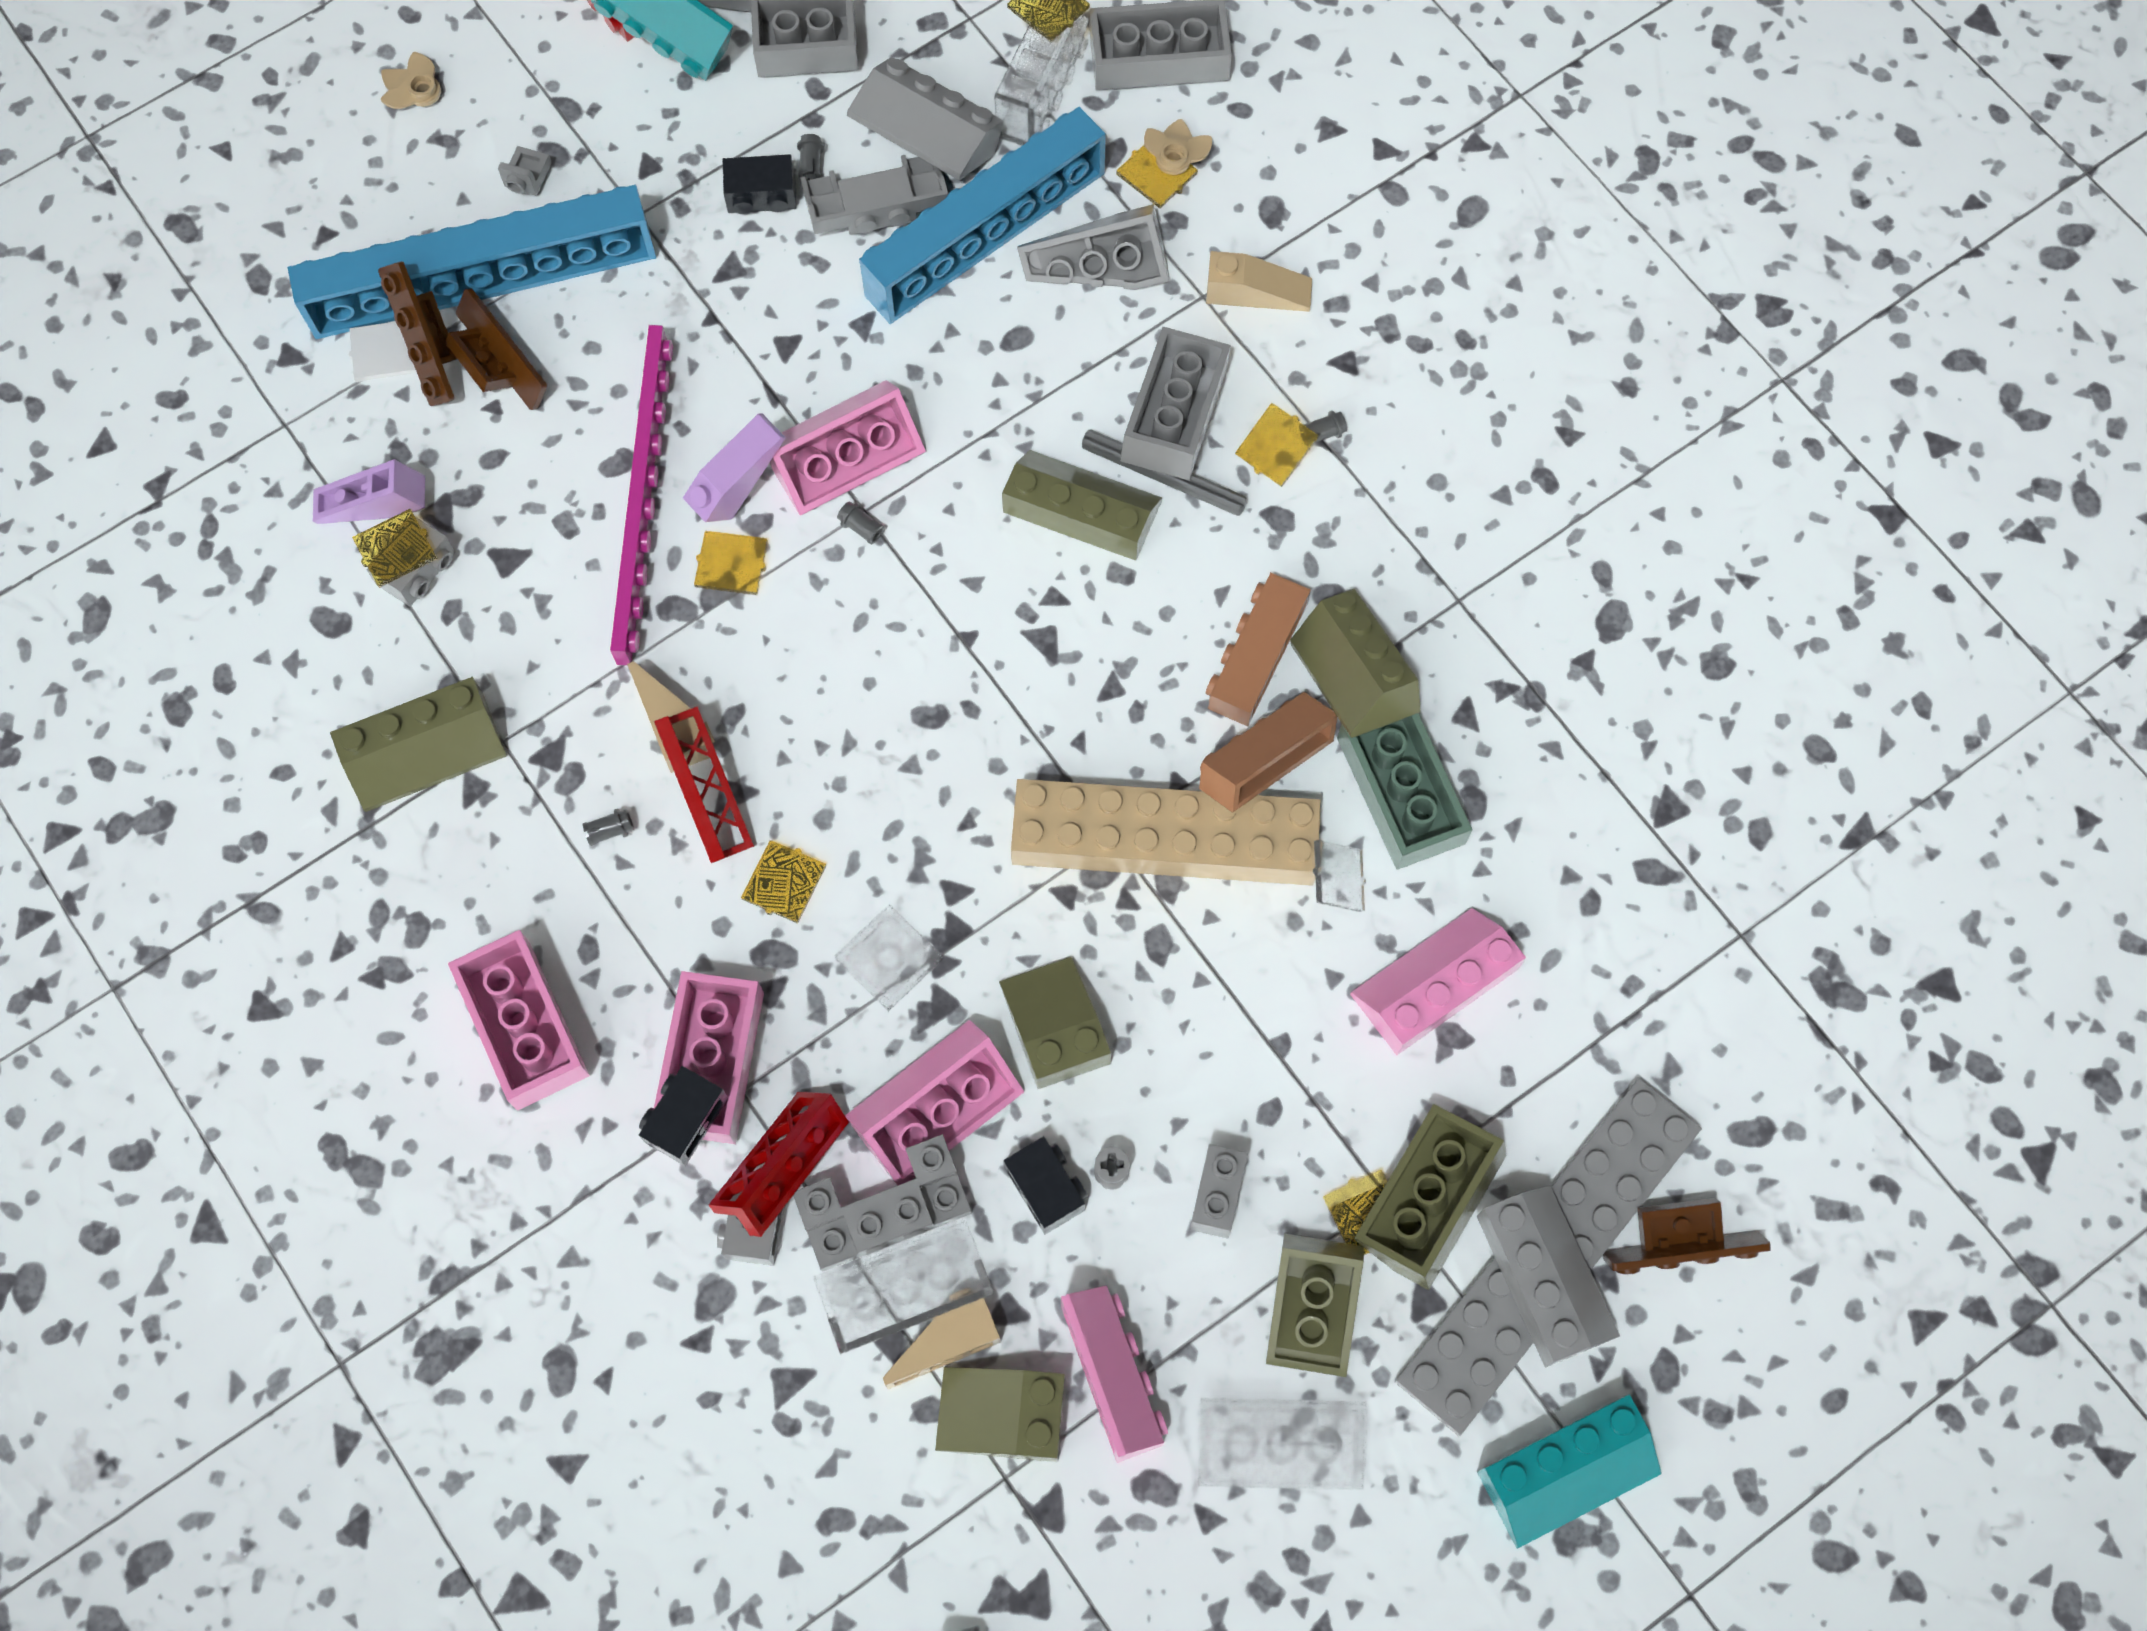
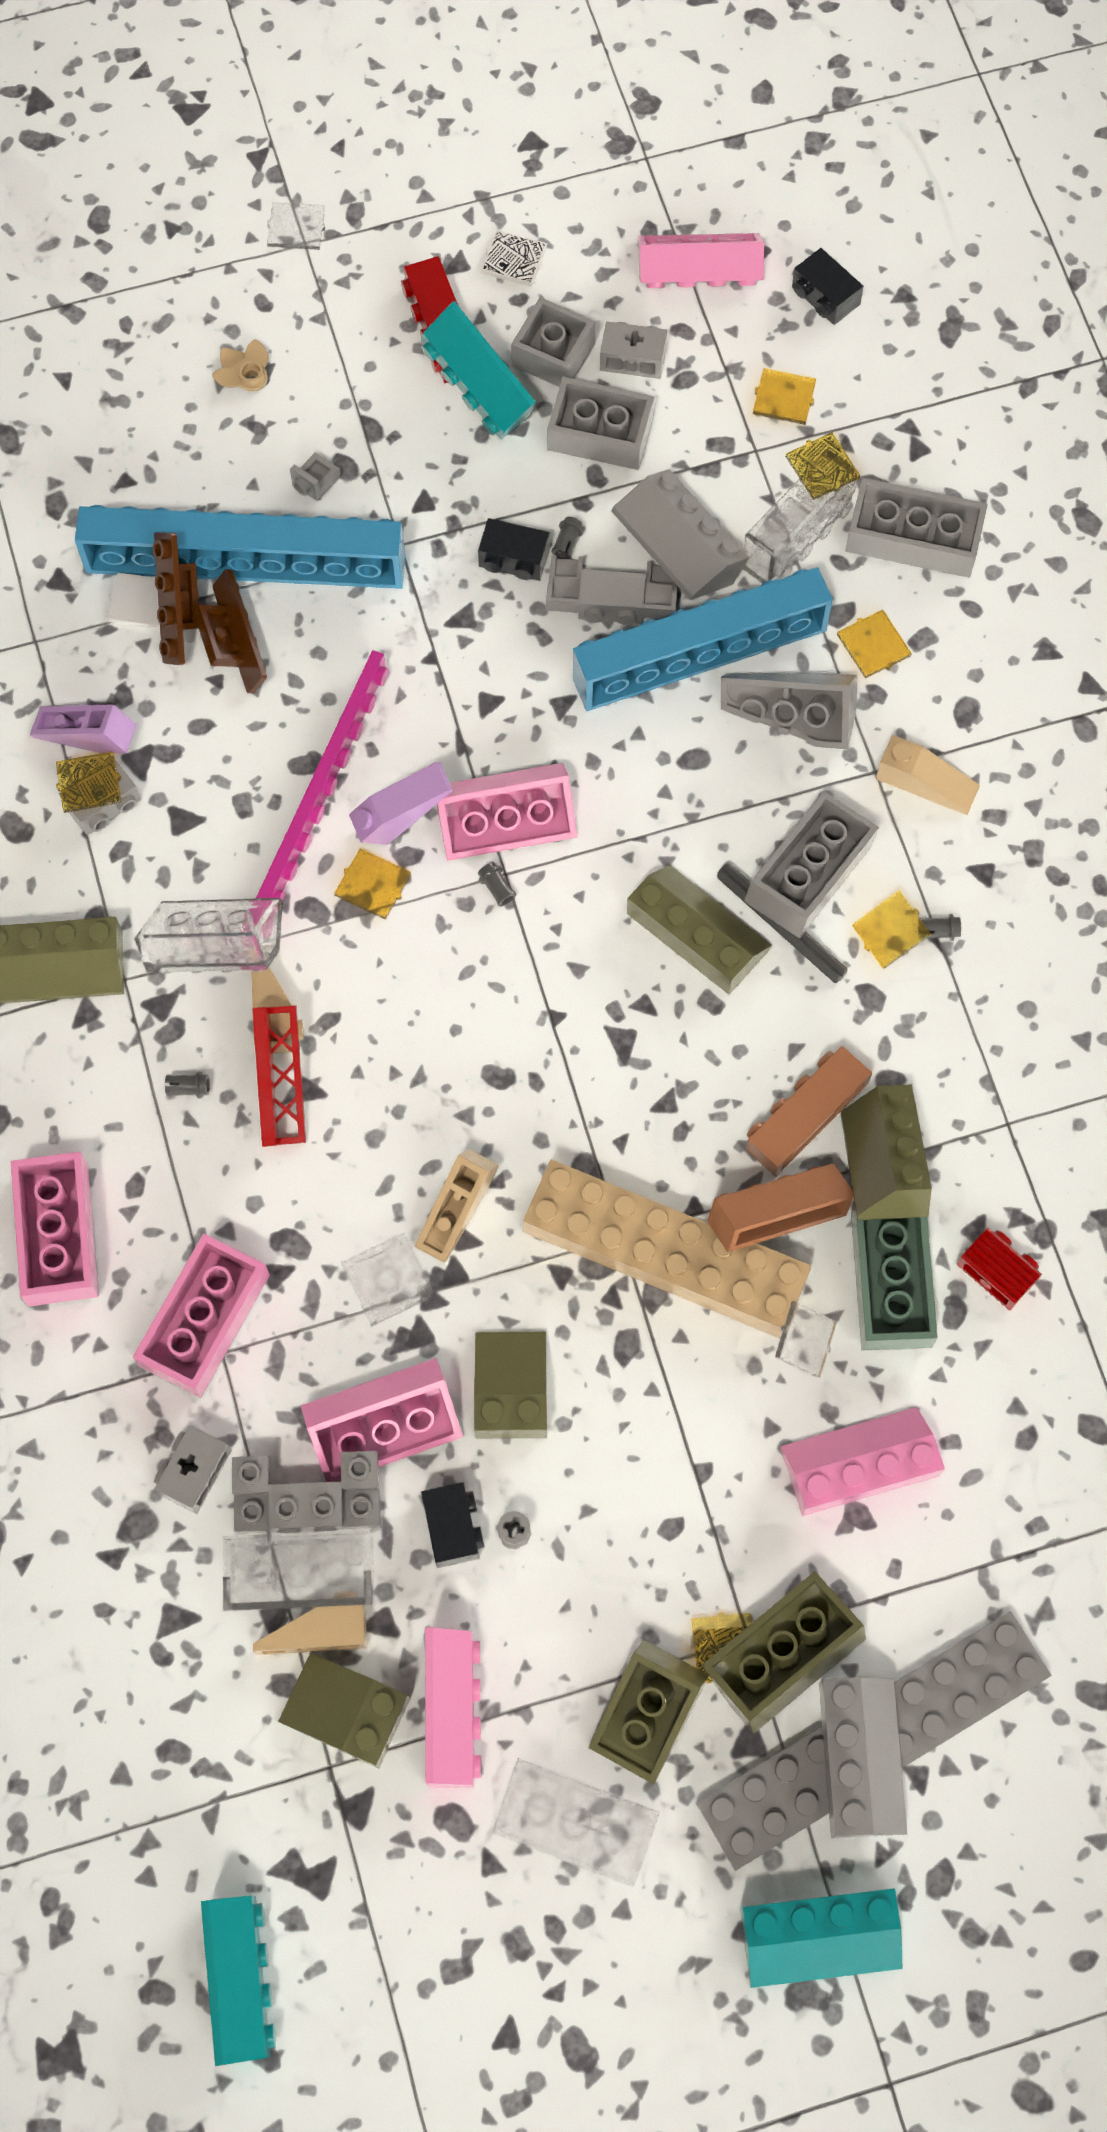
camera: 20 degrees right, 0 degrees up
(582, 664) = (211, 935): none -> clear slope
(682, 1115) = (160, 1359): black brick -> none
(783, 881) = (320, 1182): clear yellow piece -> none
(785, 1161) = (235, 1428): red fence -> none
(934, 858) = (456, 1204): none -> tan slope
(1176, 147) = (899, 624): tan plate -> none
(1218, 1191) = (599, 1582): light grey brick -> none
(1505, 743) = (1000, 1268): none -> red brick
(1684, 1234) = (998, 1764): reddish brown bracket -> none

